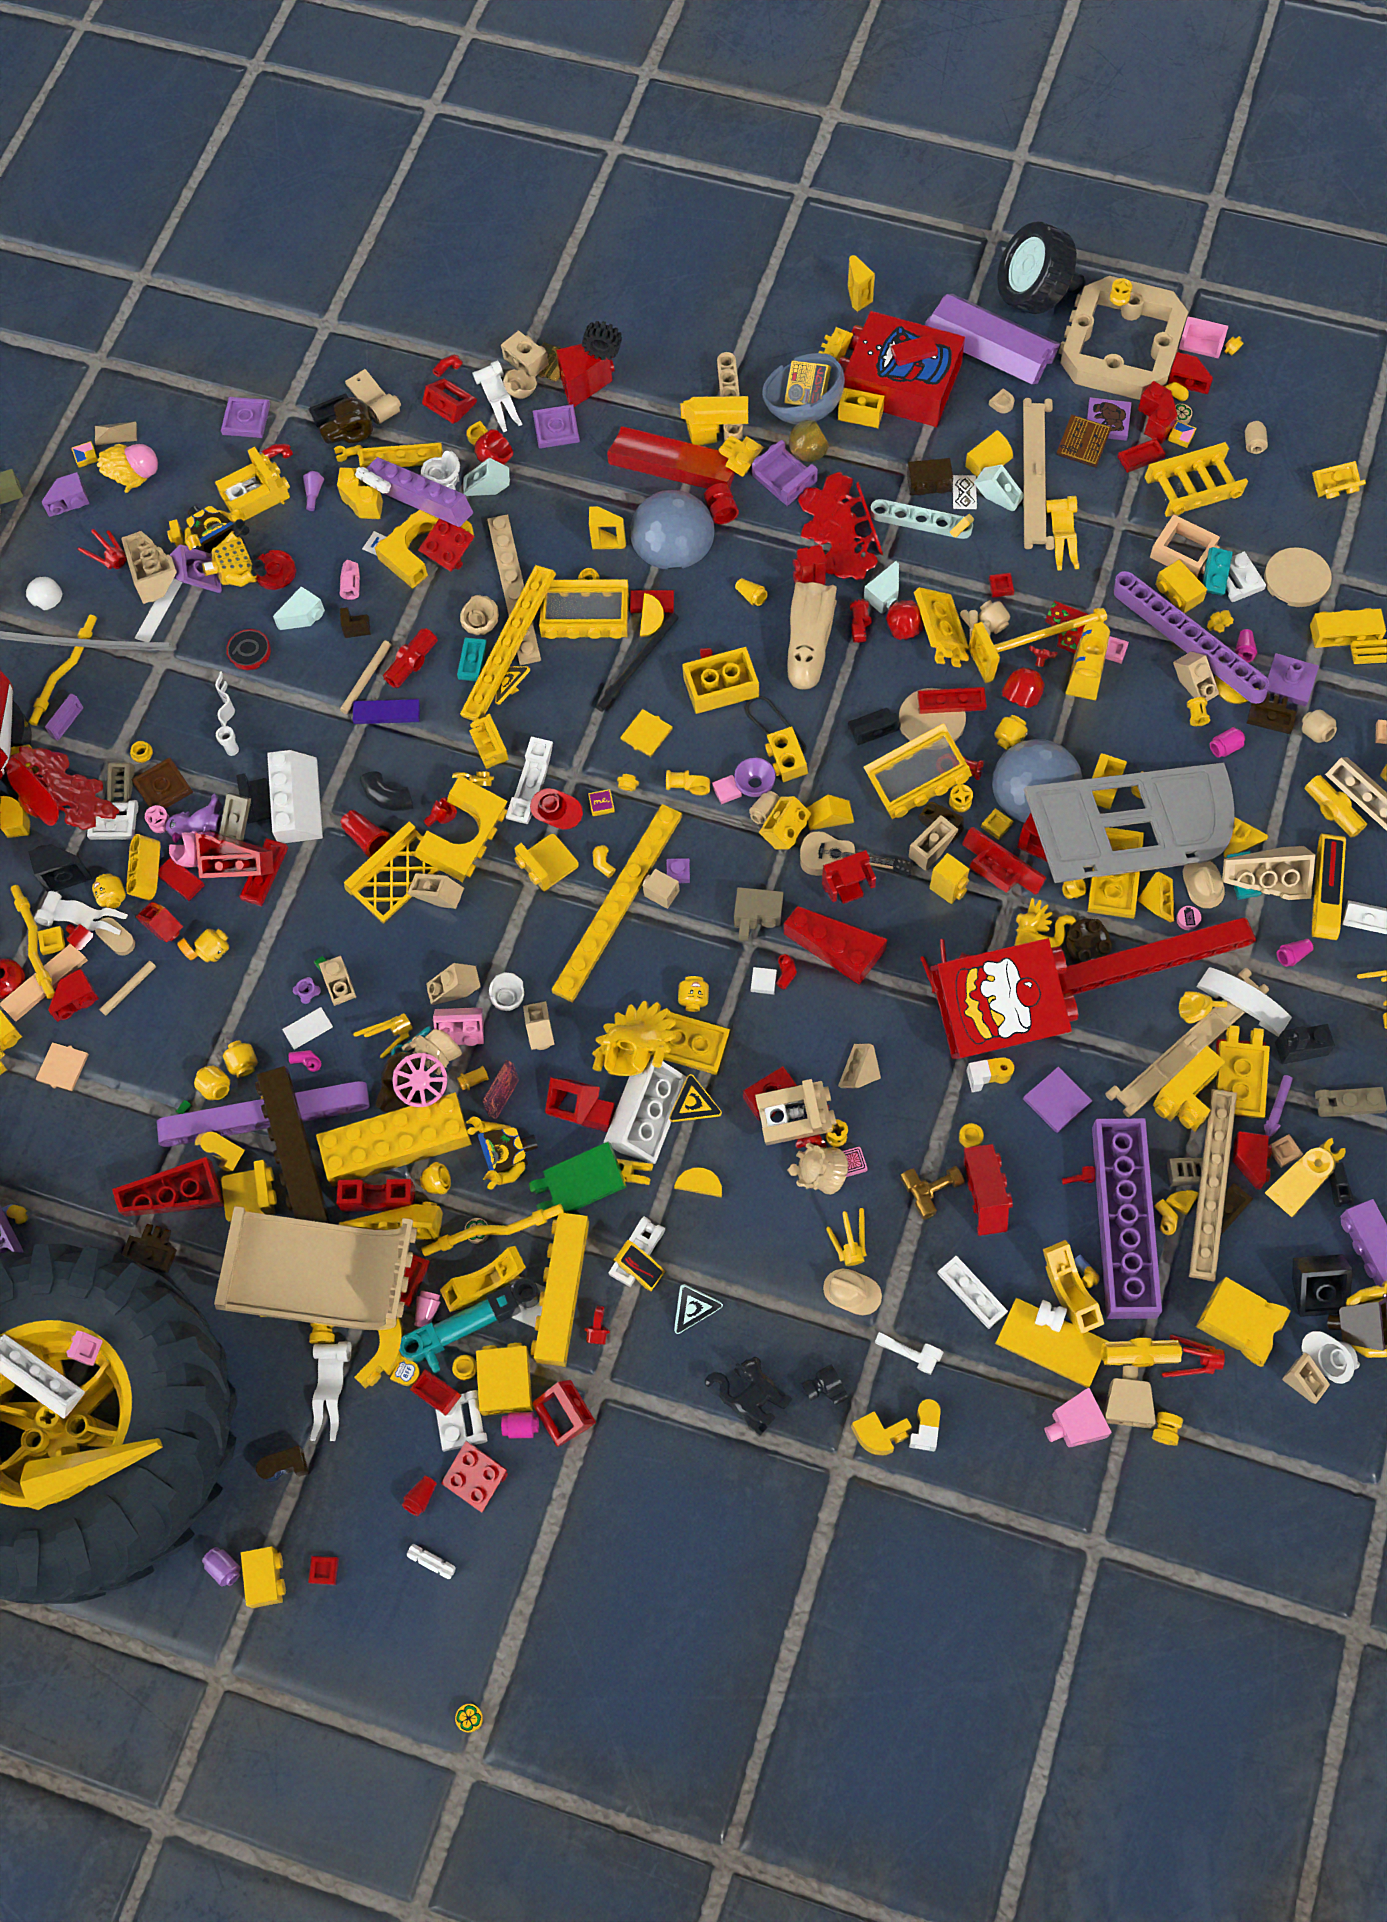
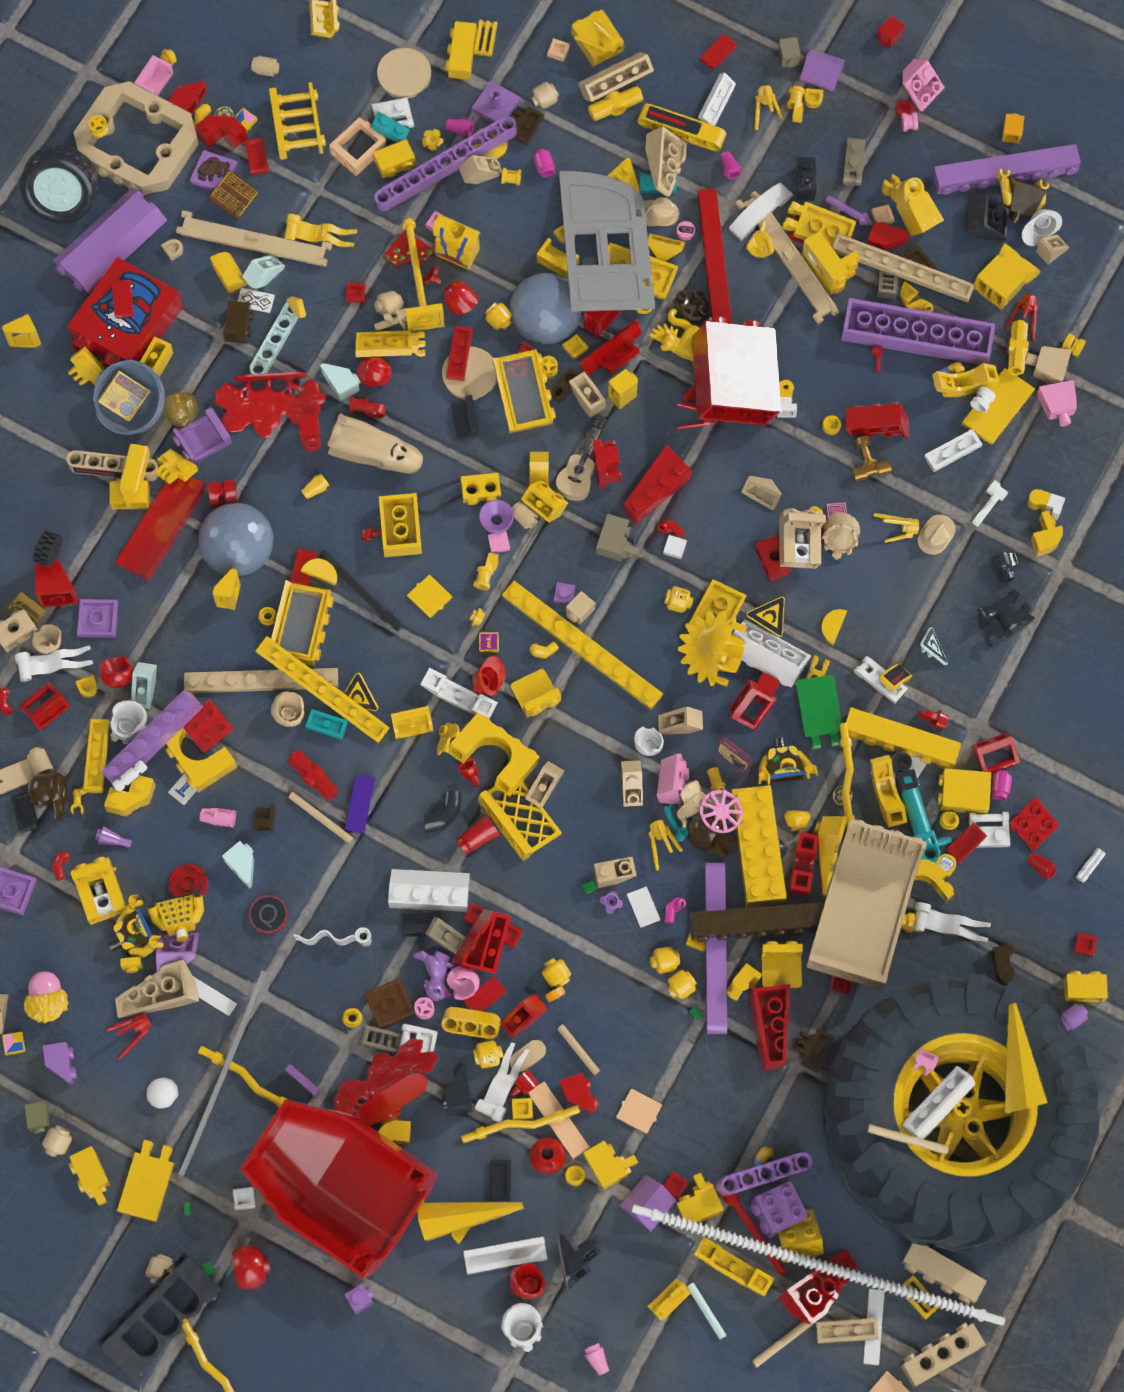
camera: 85 degrees left, 5 degrees up
(1057, 1100) = (814, 358): medium lavender tile -> none

